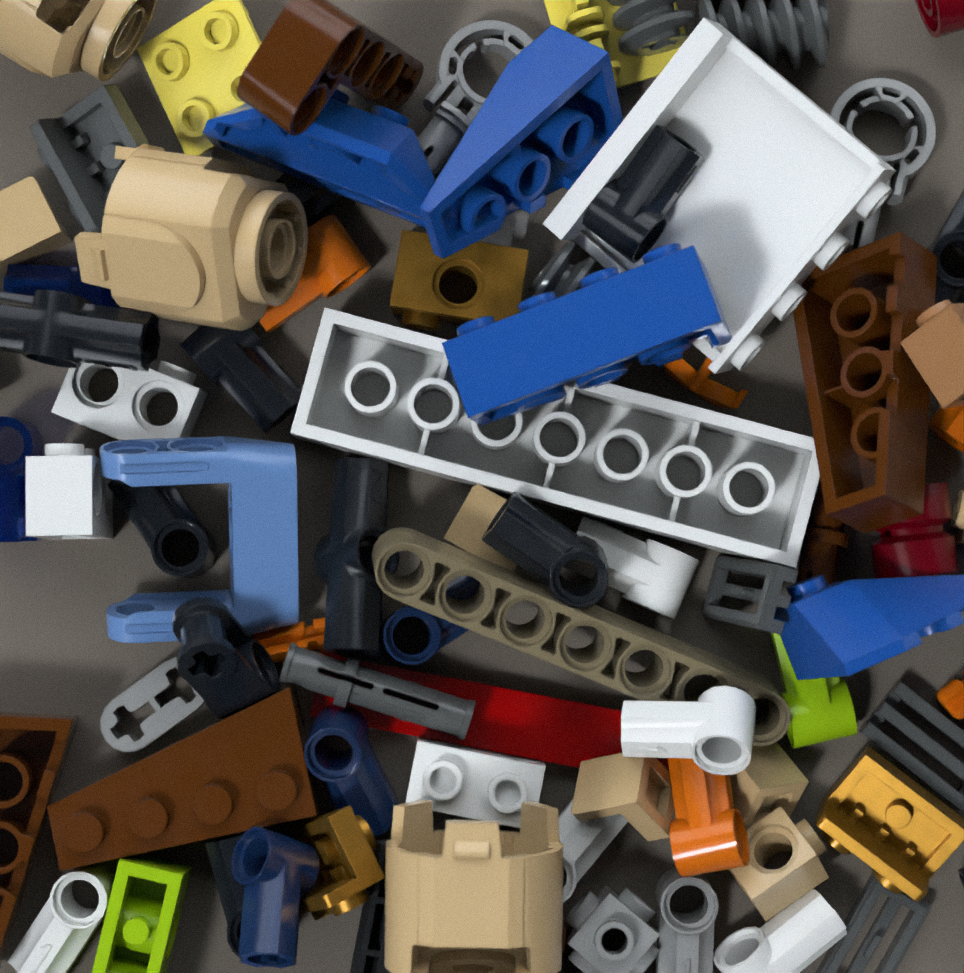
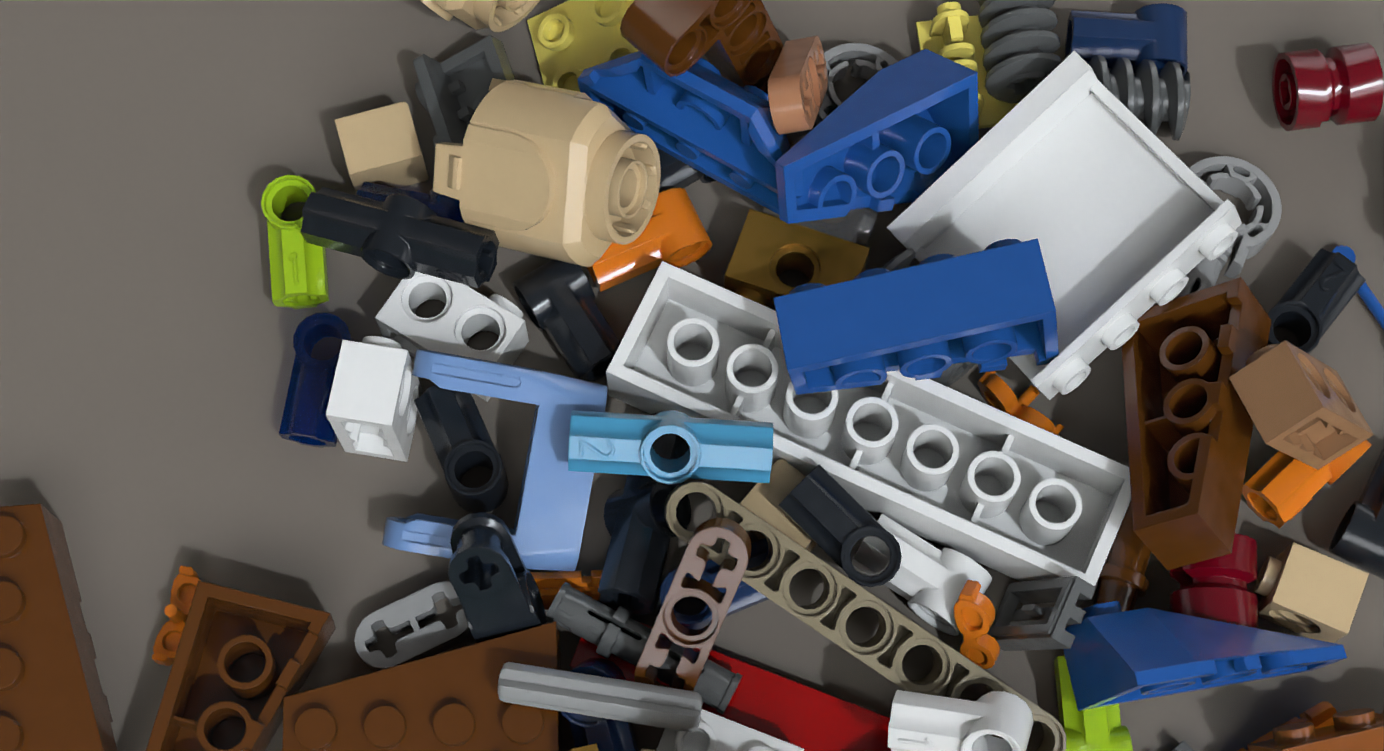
camera: 10 degrees right, 15 degrees down
(327, 509) = (716, 446): none -> dark azure piece
(344, 758) = (600, 696): none -> light grey axle
(411, 639) = (727, 577): none -> beam
(428, 100) = (797, 85): none -> nougat beam
(633, 209) = (991, 209): black piece -> none
(687, 610) = (974, 617): none -> orange piece

